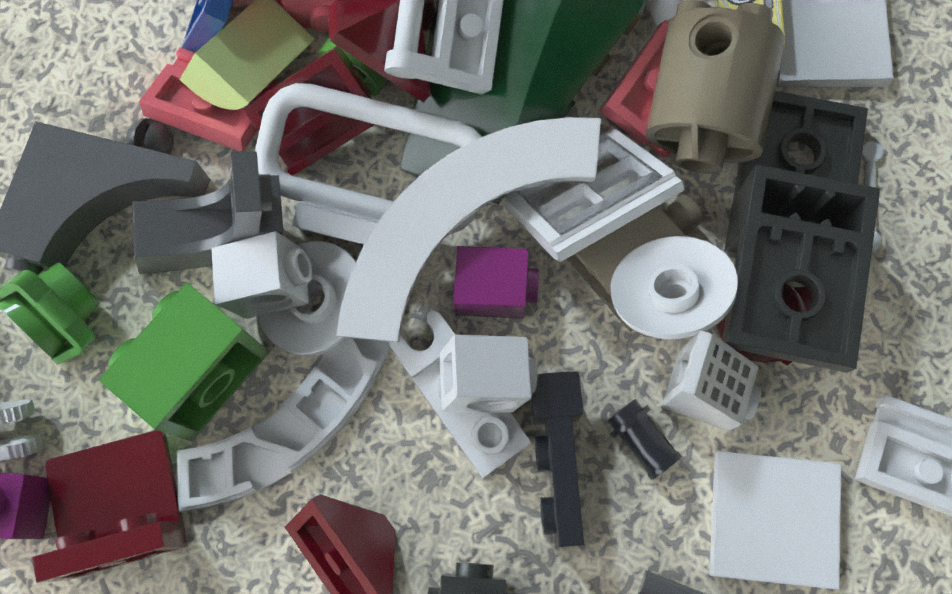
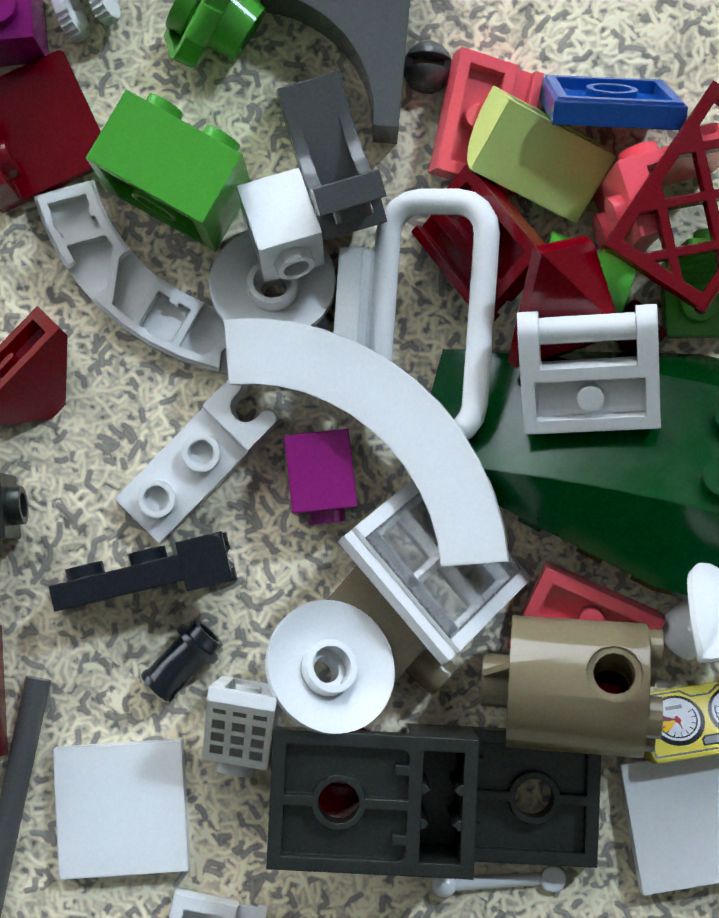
camera: 75 degrees right, 10 degrees up
(486, 373) = (209, 484): white brick -> none

